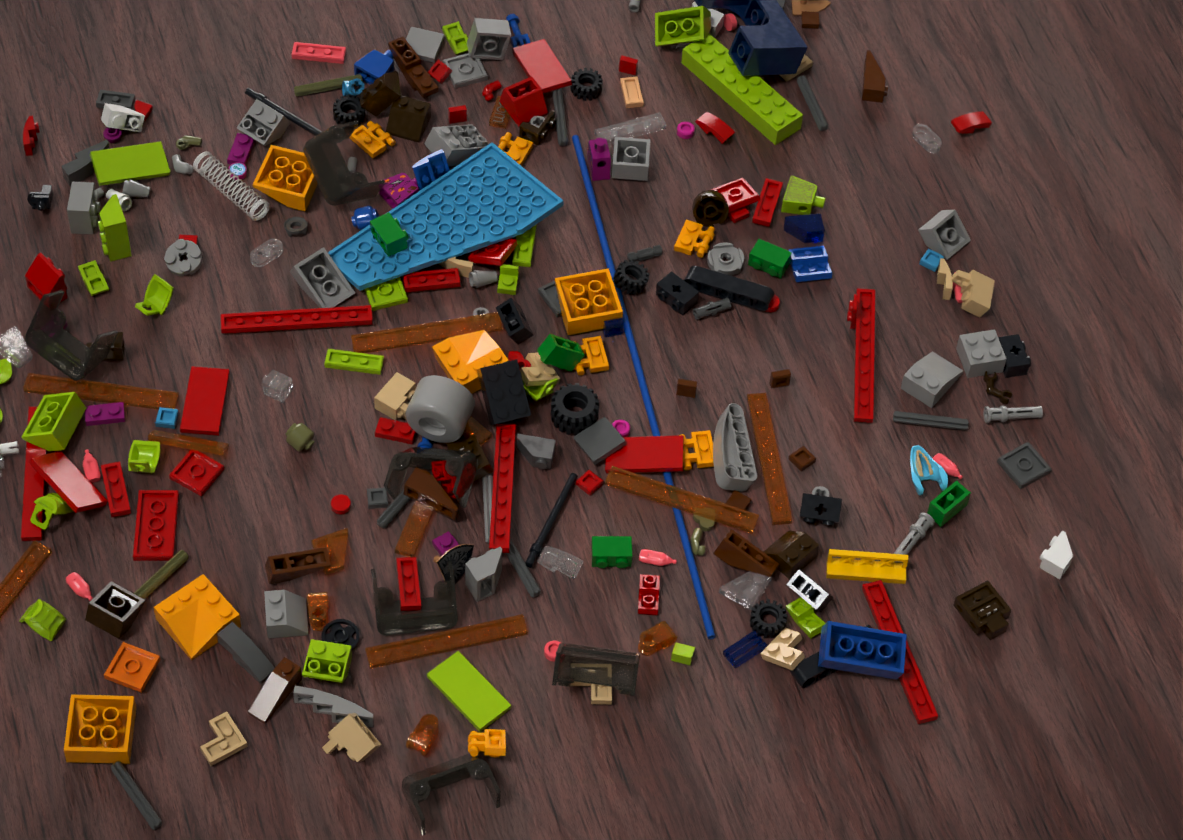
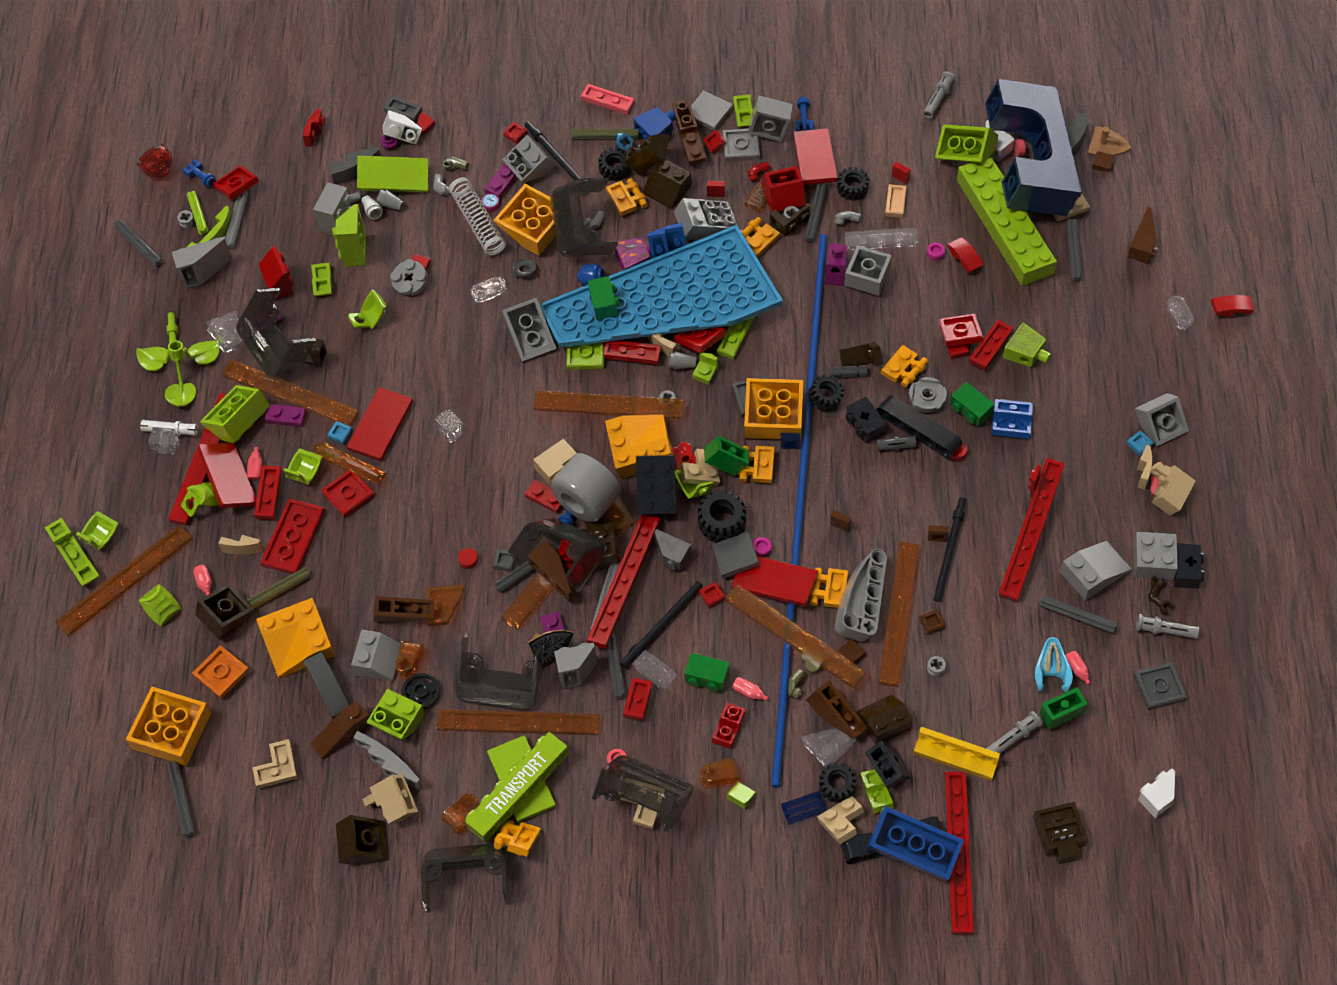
camera: 25 degrees right, 5 degrees up
(42, 199) = (303, 193): black piece -> none
(115, 543) = (245, 546): none -> tan slope
(238, 101) = (515, 132): none -> red tile
(296, 319) = (491, 362): red plate -> none
(300, 437) = (452, 481): olive head -> none
(334, 785) = (361, 840): none -> dark brown slope
(354, 361) = (531, 417): lime tile -> none
(408, 583) = (501, 655): red plate -> none
(470, 698) = (516, 787): none -> lime brick
(514, 321) = (694, 412): black brick -> none
(554, 591) = (637, 699): none -> red plate
(596, 114) = (848, 215): none -> light grey arm
(652, 235) = (861, 354): none -> dark brown bracket
(710, 208) = (928, 338): dark brown cylinder -> none
(792, 361) = (958, 517): none -> black bar
(805, 227) = (1020, 380): clear blue slope -> none
(810, 502) = (922, 671): black brick -> none

